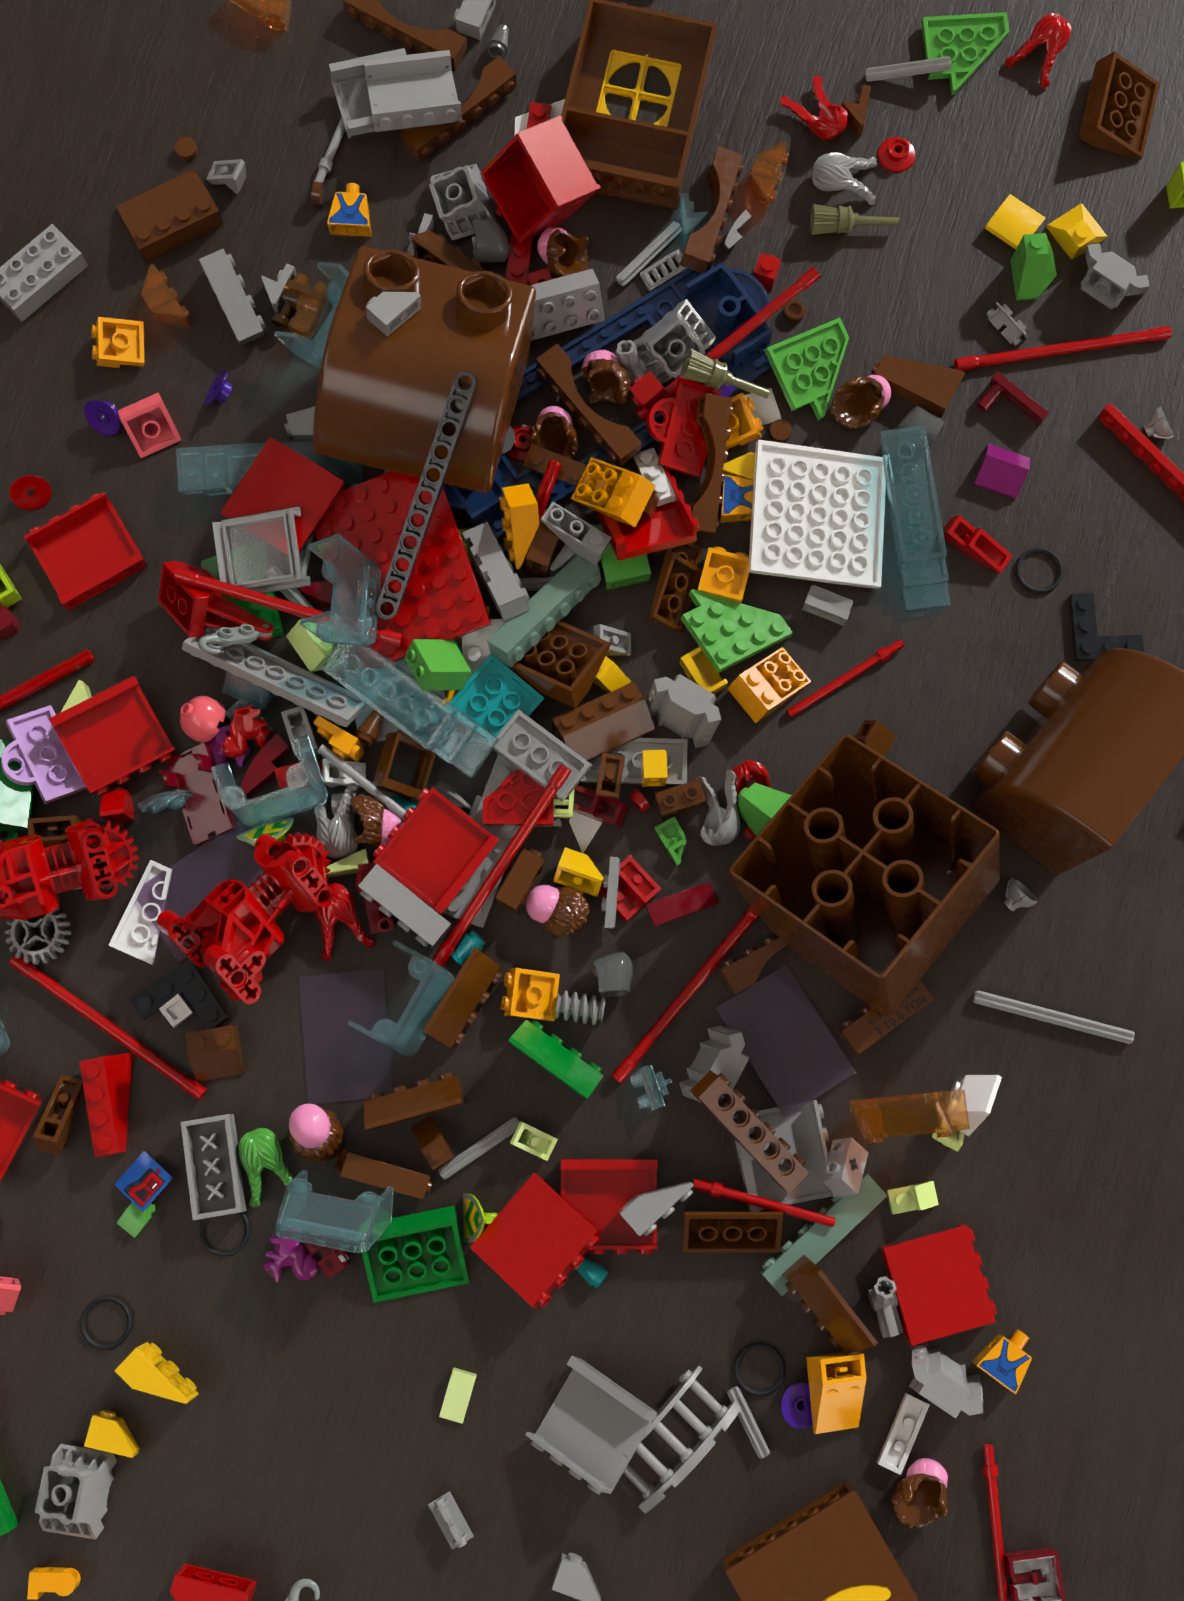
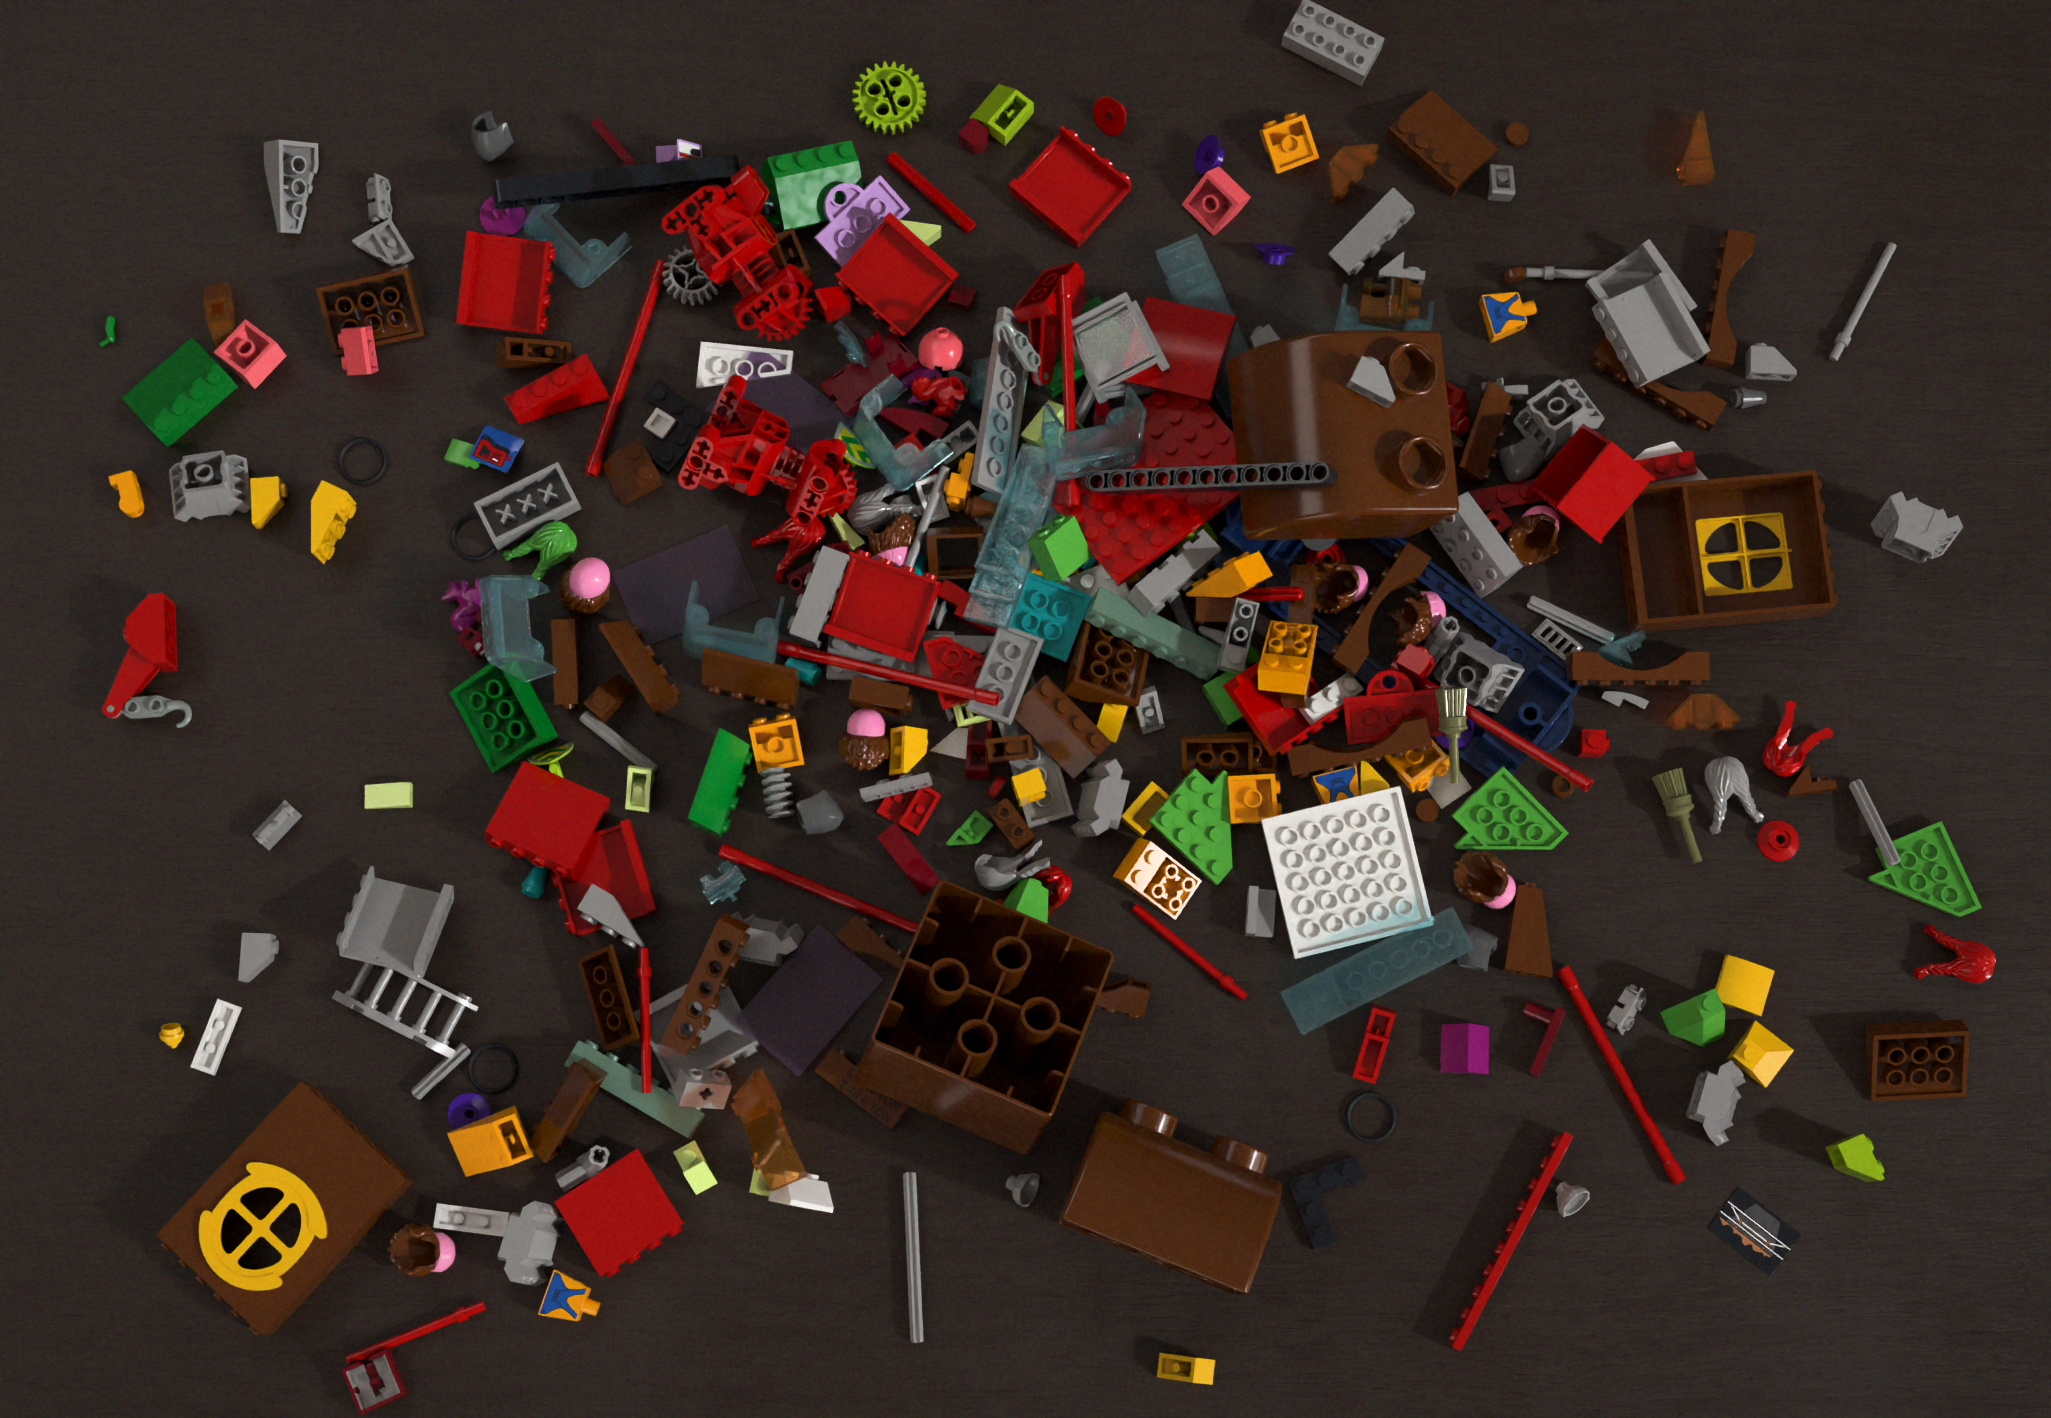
camera: 75 degrees right, 0 degrees up
(156, 685) = (962, 297): none -> dark red slope
(455, 777) = (958, 599): none -> red slope

